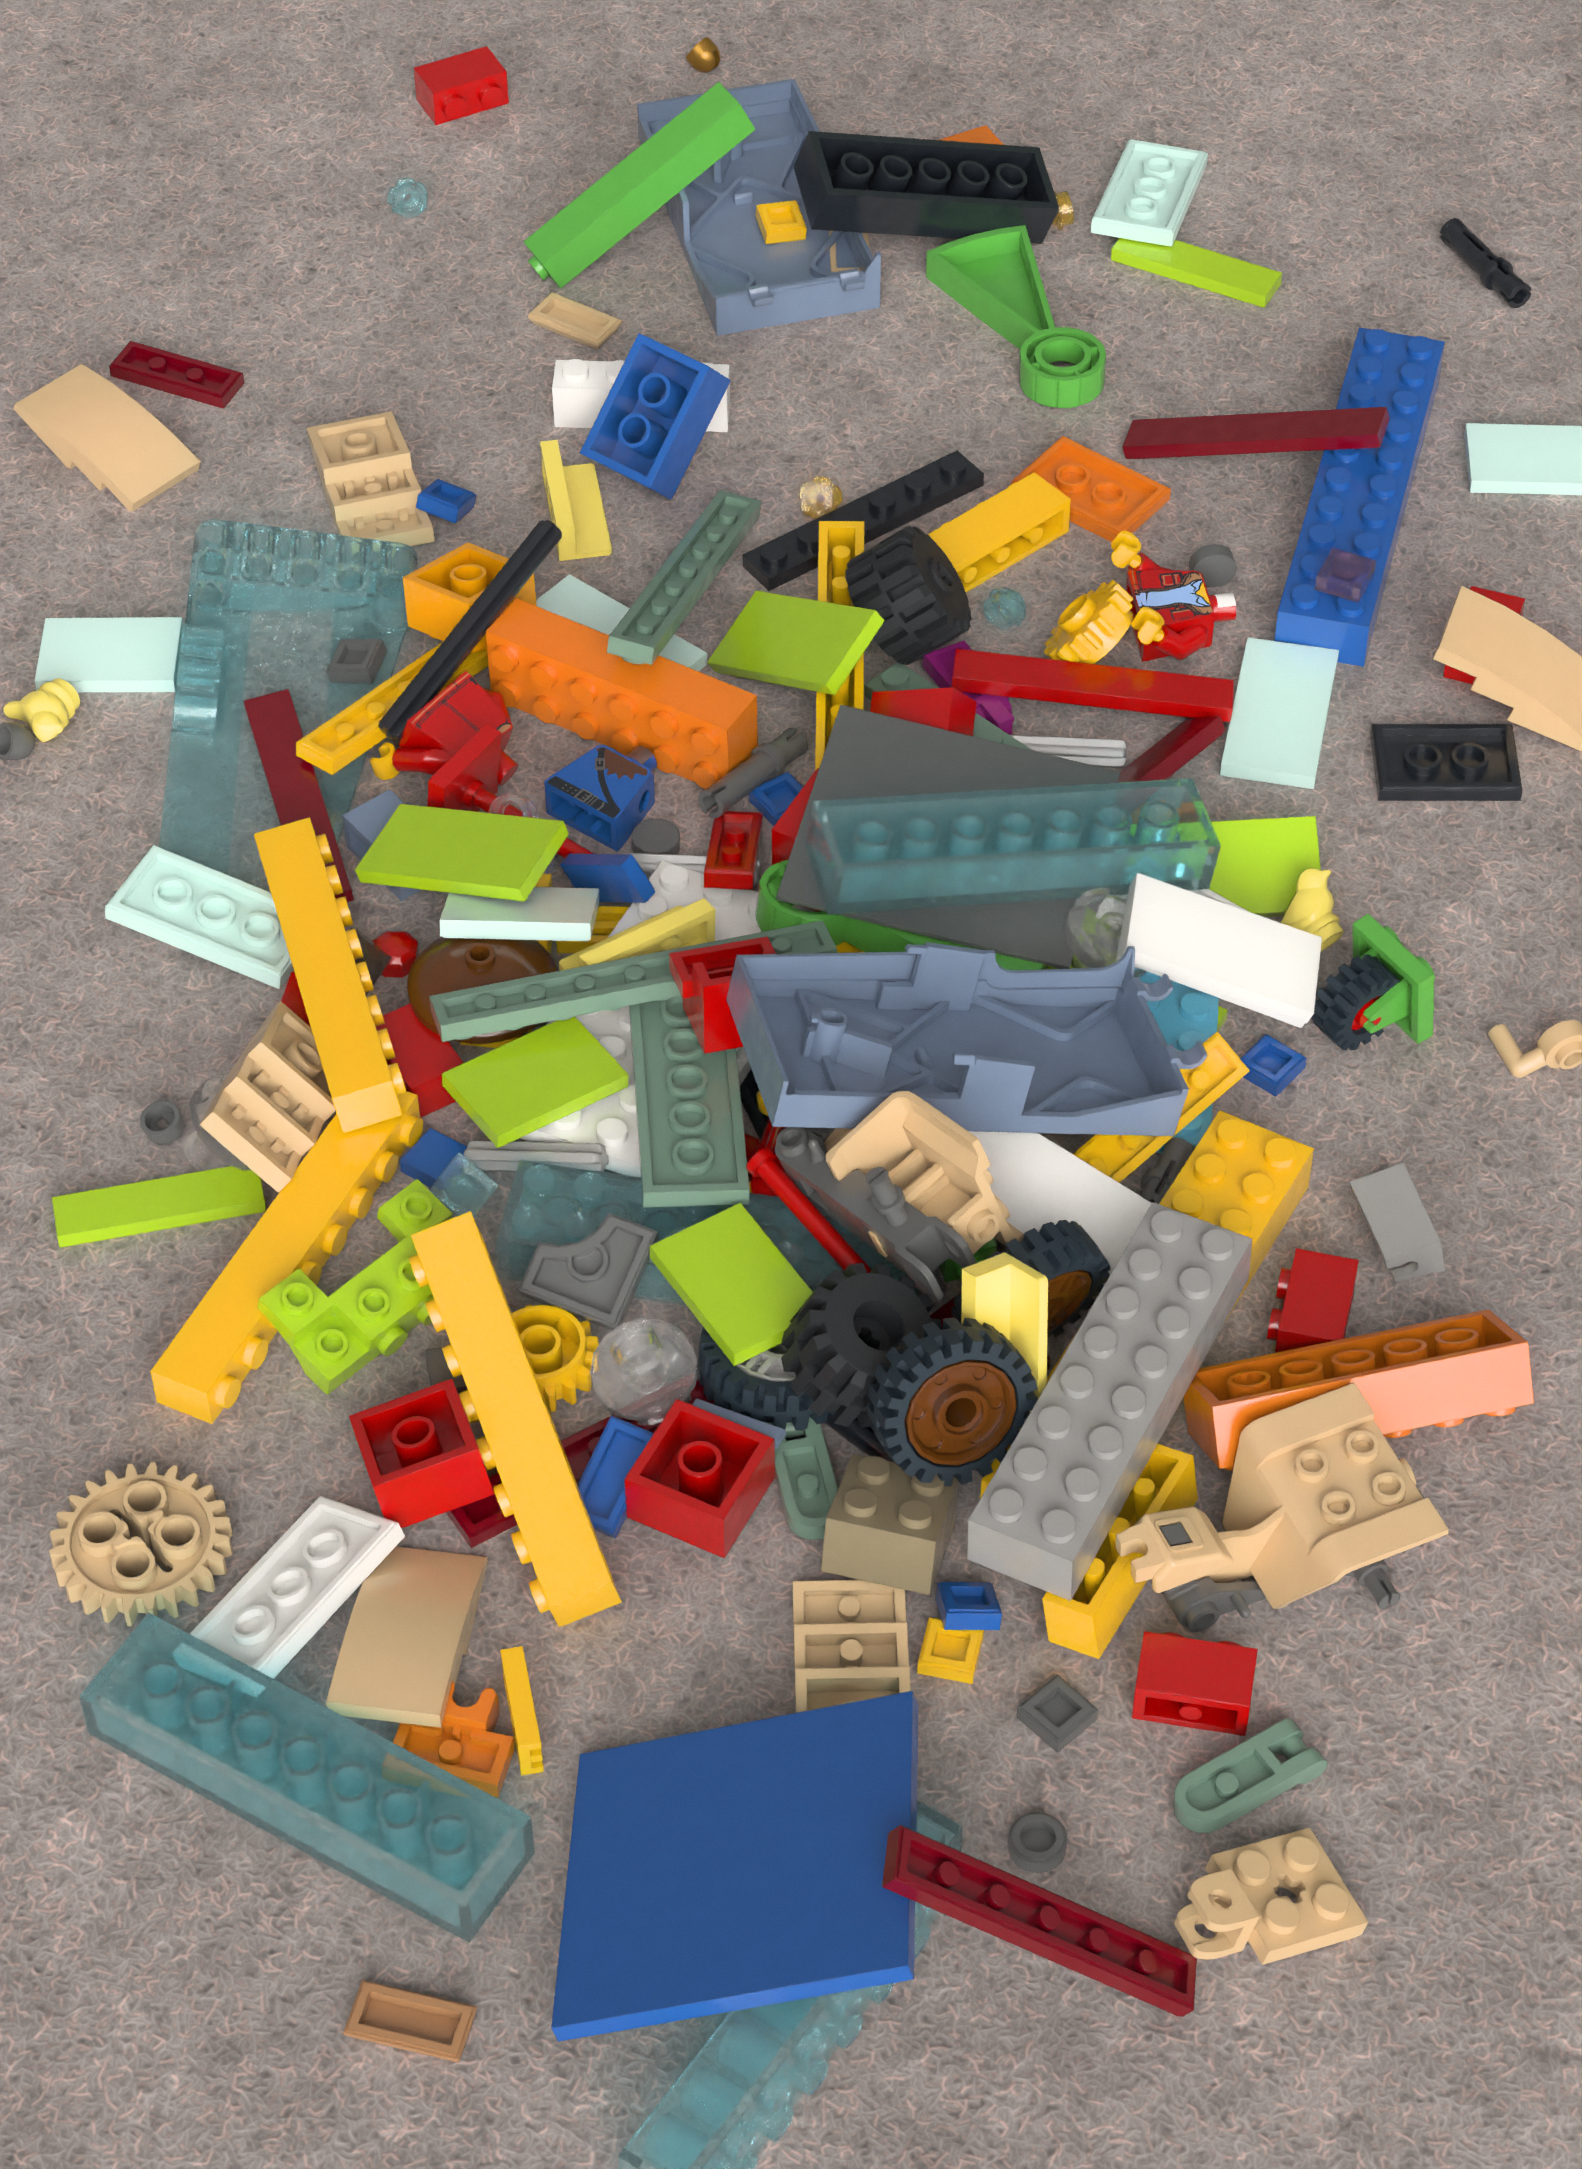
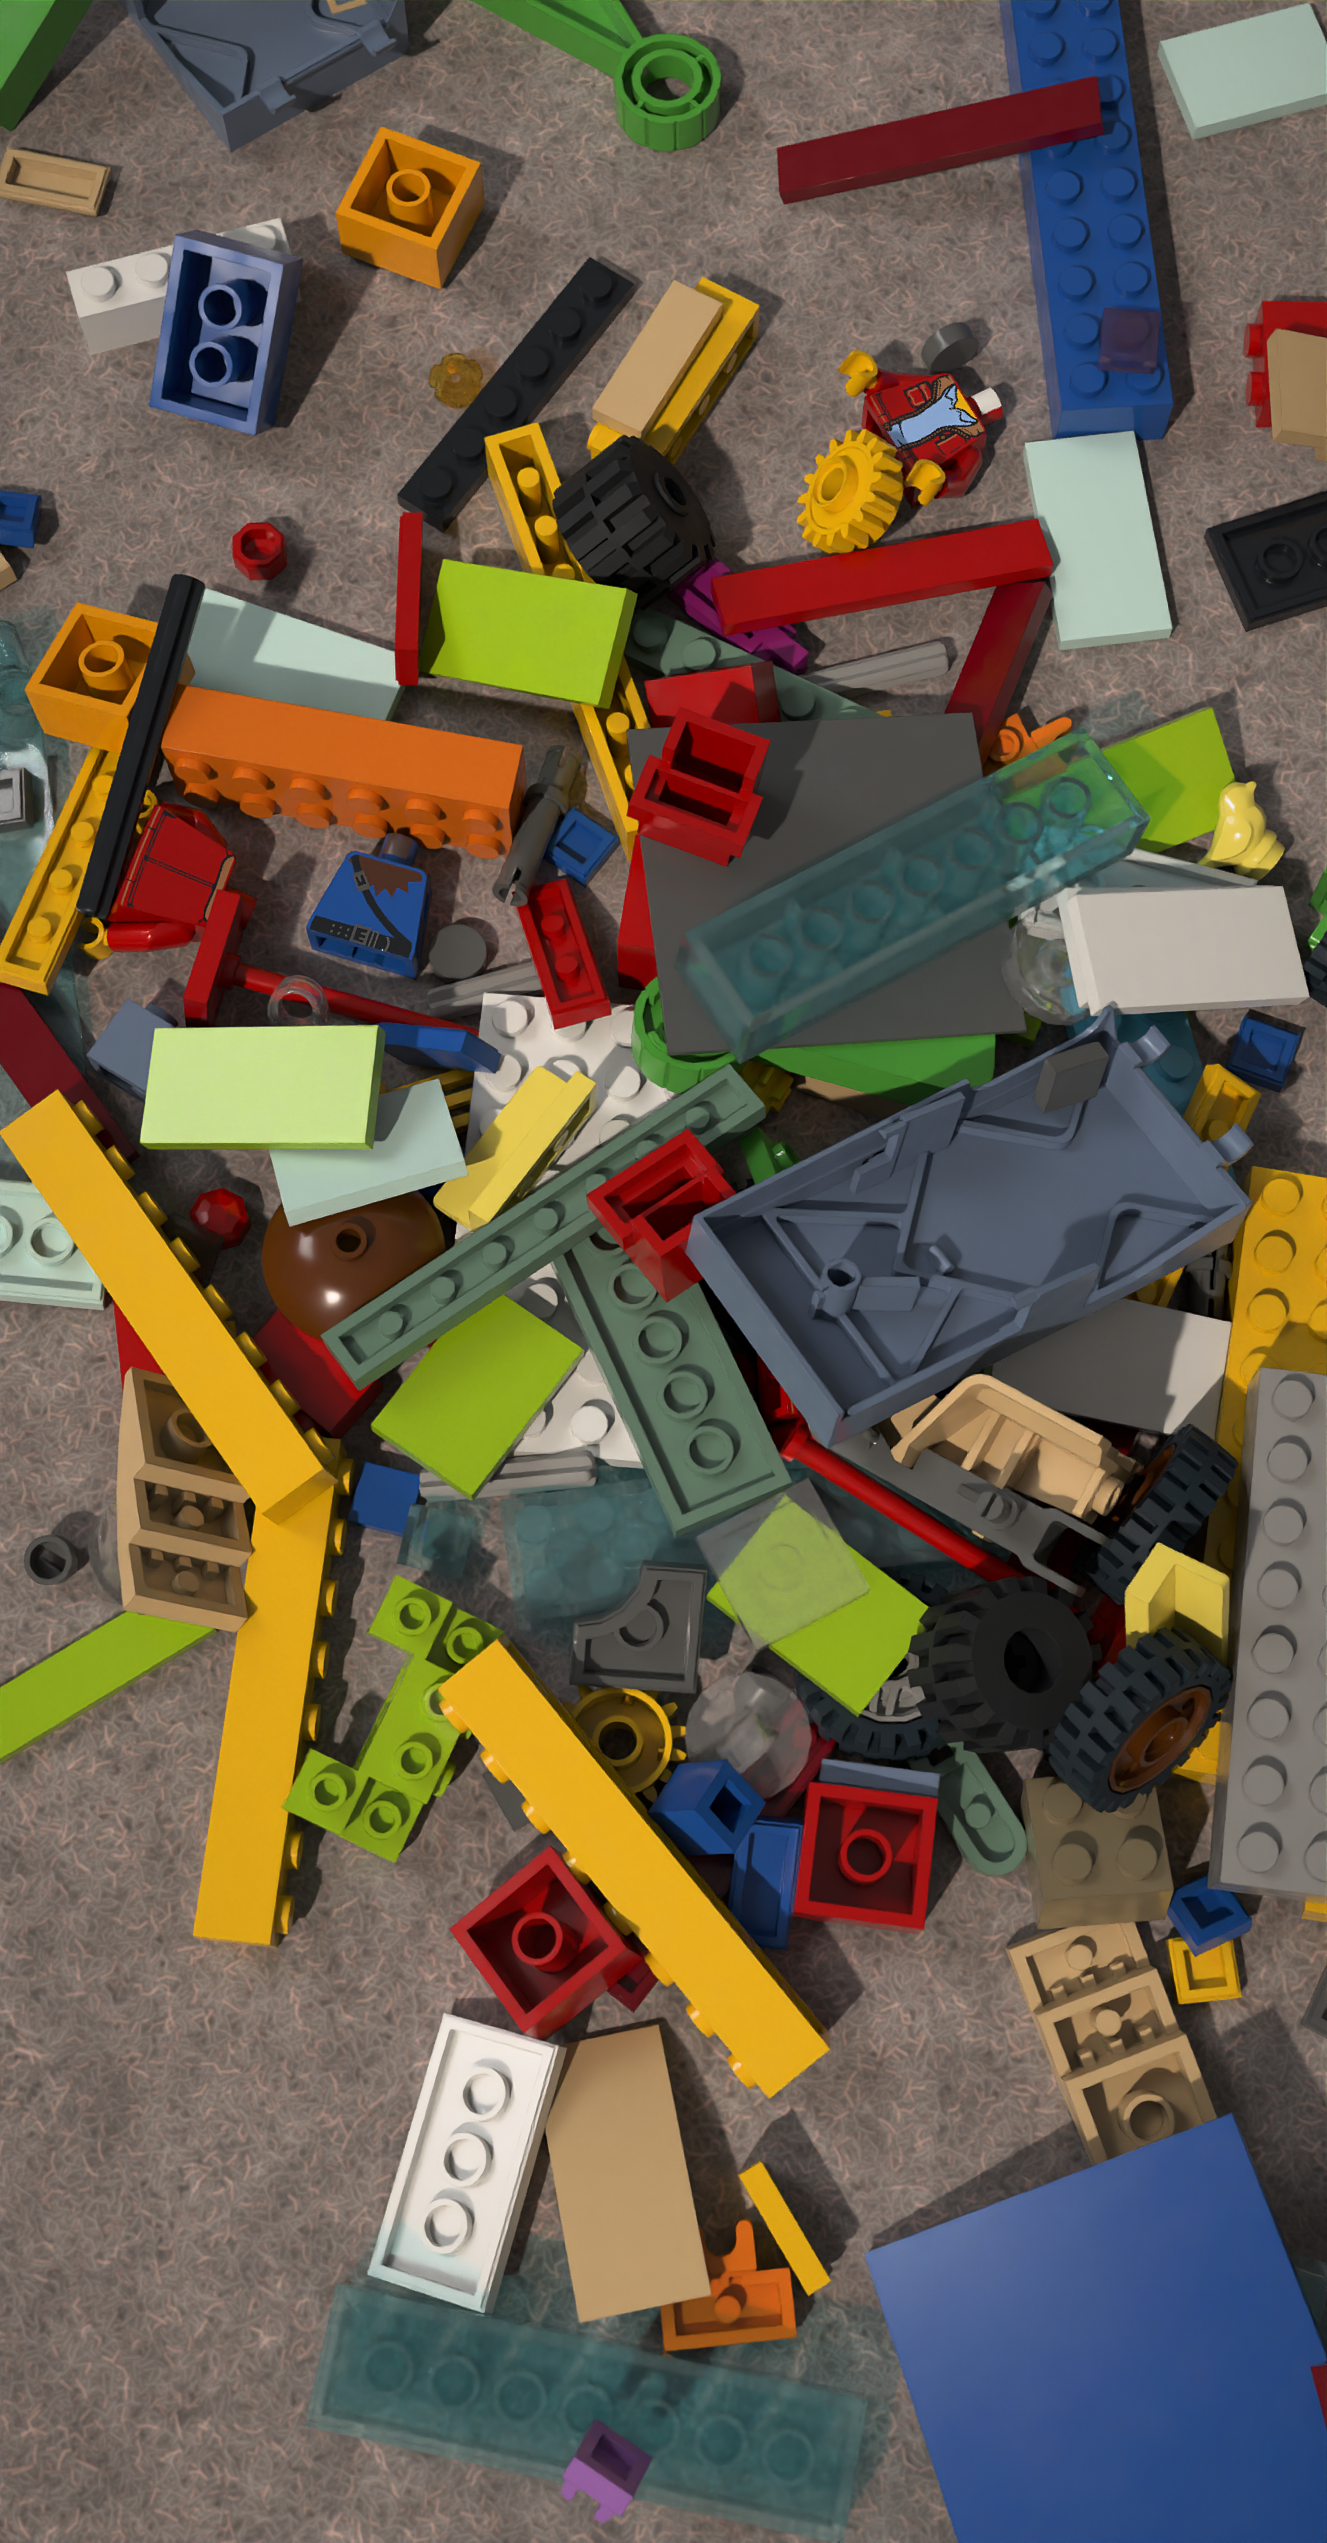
camera: 20 degrees left, 25 degrees up
(177, 1515) = (243, 2210): tan gear -> none
(300, 1779) = (606, 2470): none -> medium lavender tile
(574, 505) = (166, 477): light yellow panel -> none
(587, 1394) = (706, 1808): none -> blue brick
(622, 564) = (259, 551): none -> red tile
(683, 578) = (360, 580): sand green plate -> none
(716, 1239) = (782, 1565): none -> clear tile
(719, 612) = (409, 599): none -> red tile
(832, 386) = (410, 207): none -> light orange brick
(876, 737) = (701, 788): none -> red plate
(977, 507) = (657, 361): none -> tan tile
(1004, 608) = (733, 483): clear light blue plate -> none
(1084, 988) = (1070, 1077): none -> dark grey tile
(1101, 491) = (770, 261): orange tile -> none

